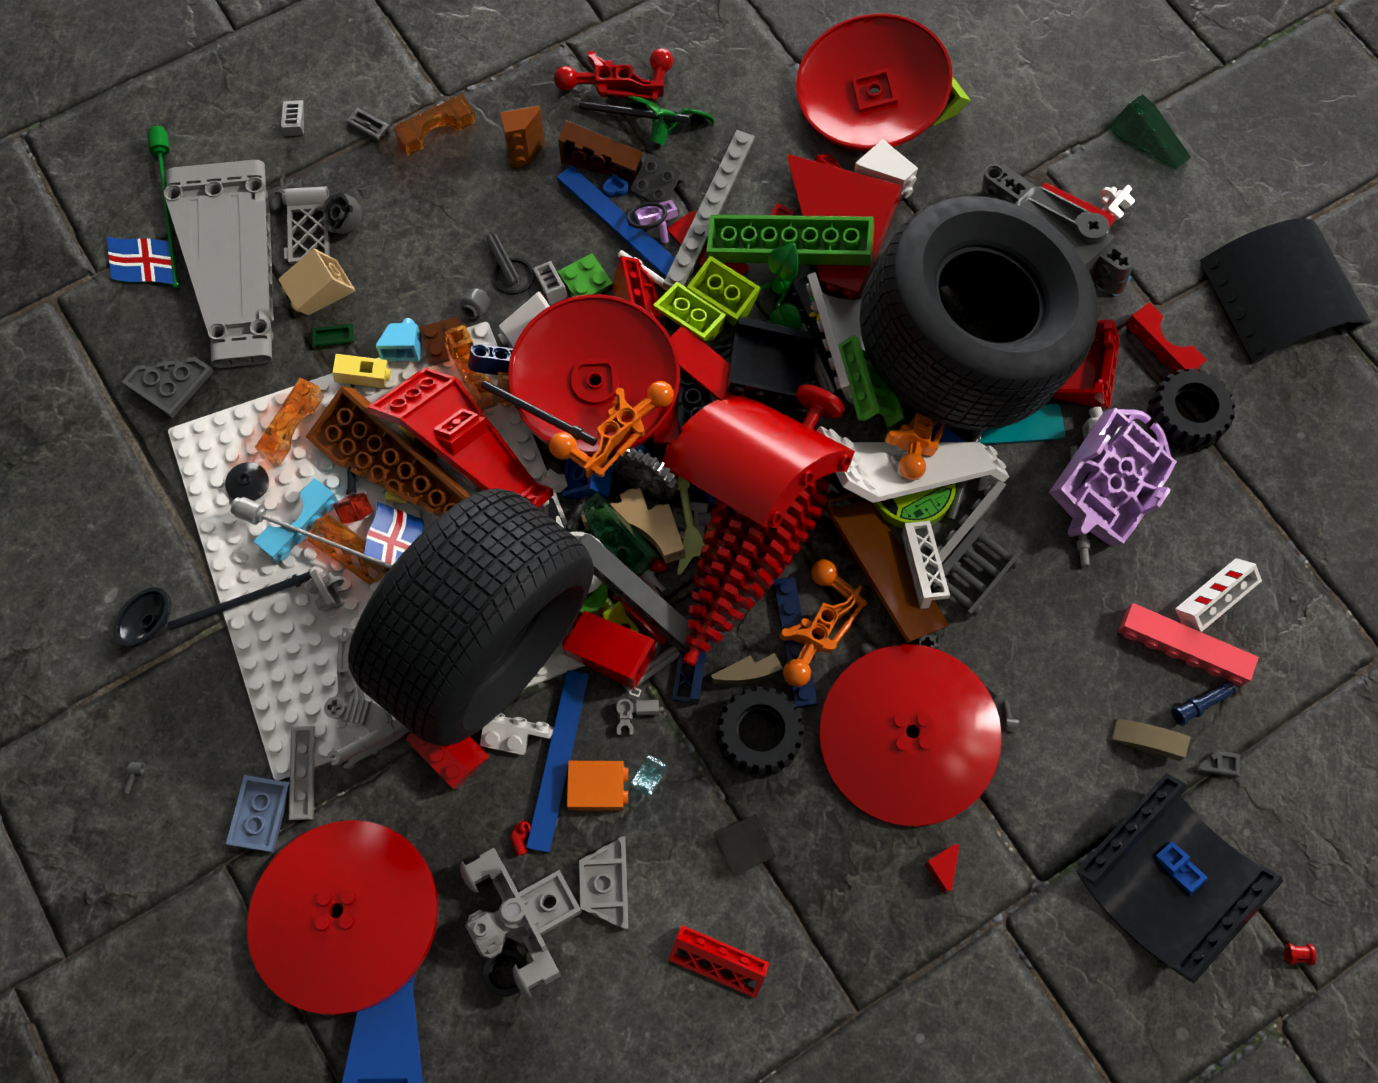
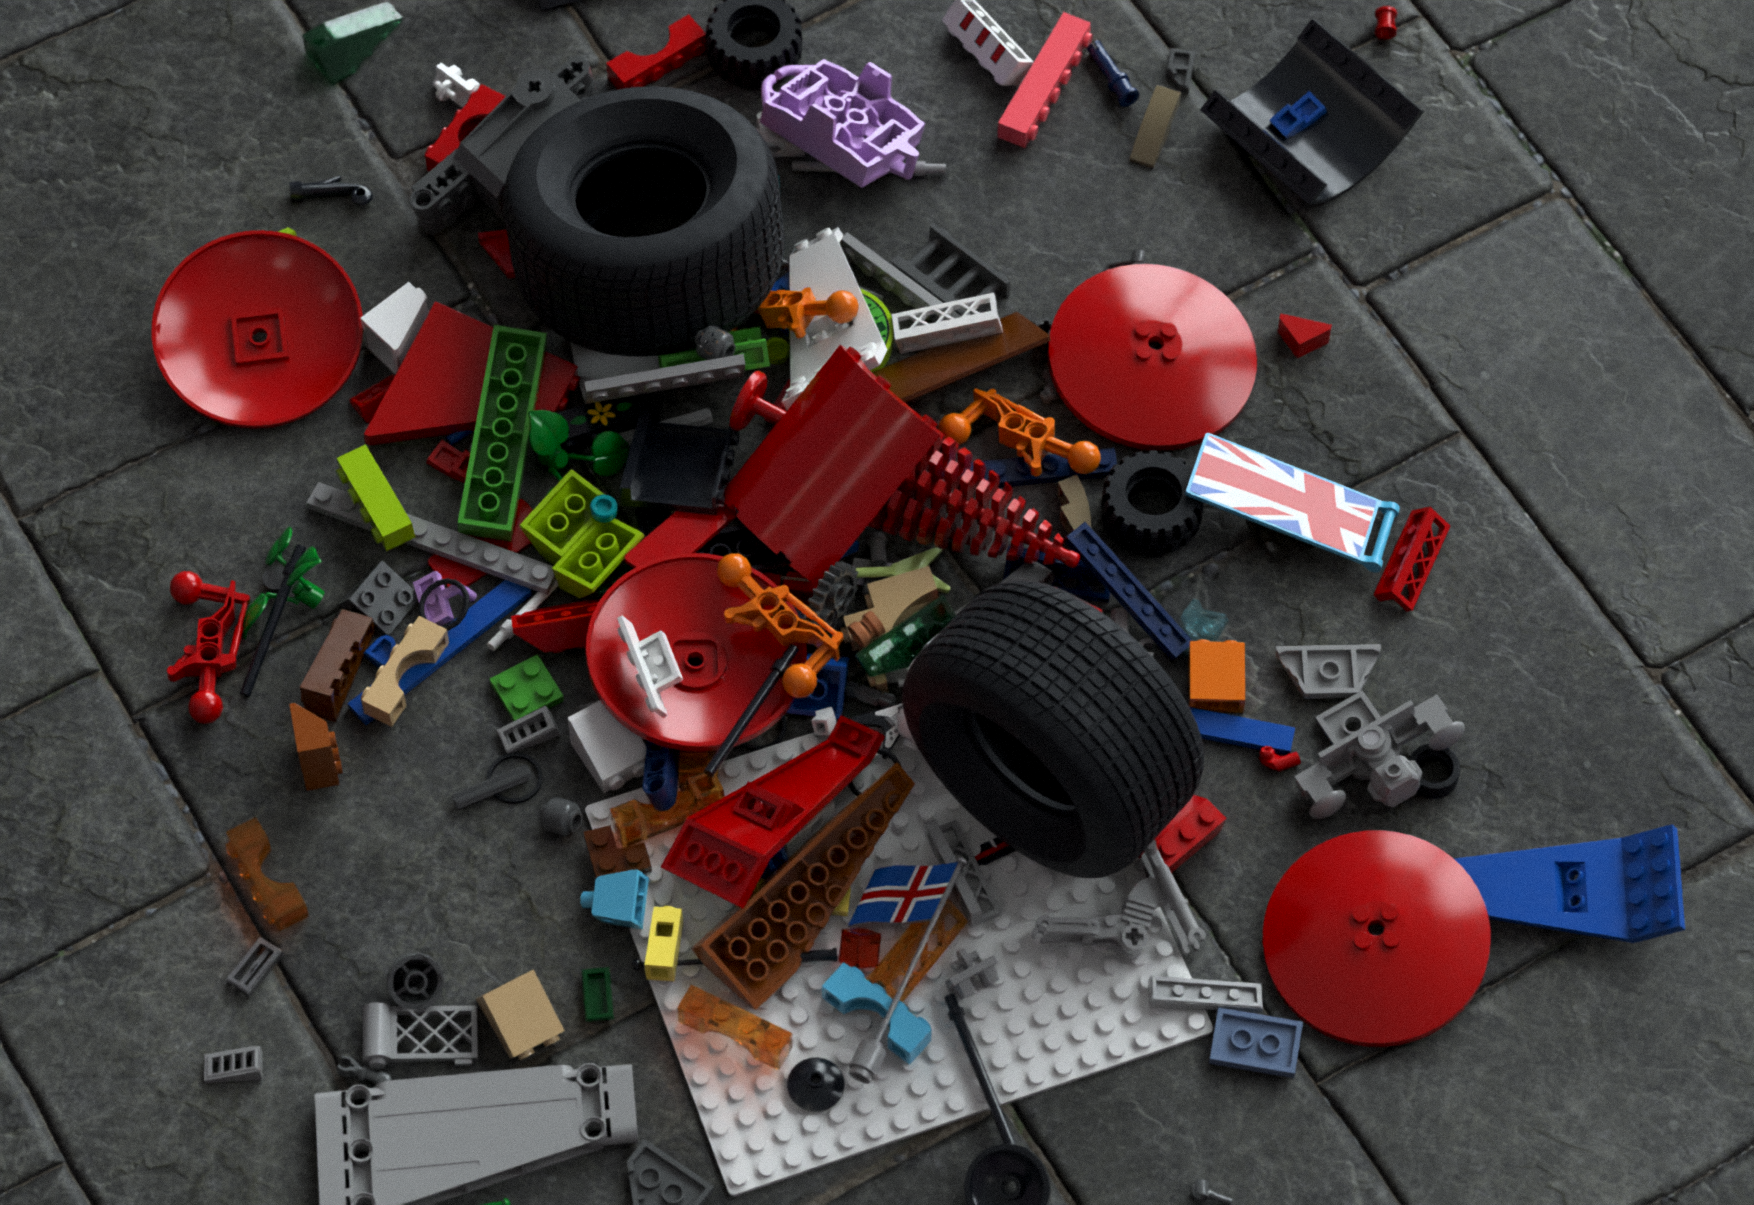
camera: 85 degrees left, 10 degrees down
(570, 184) = (421, 644): none -> tan arch
(572, 335) = (654, 664): none -> white bracket
(622, 501) = (866, 629): none -> nougat wheel
(668, 709) = (1128, 591): none -> dark blue plate
(726, 311) = (603, 508): none -> teal tile
(731, 163) = (375, 498): none -> lime brick
(763, 849) = (1290, 500): none -> flag
(861, 368) = (714, 343): none -> dark grey head
(1012, 127) = (331, 187): none -> black plant

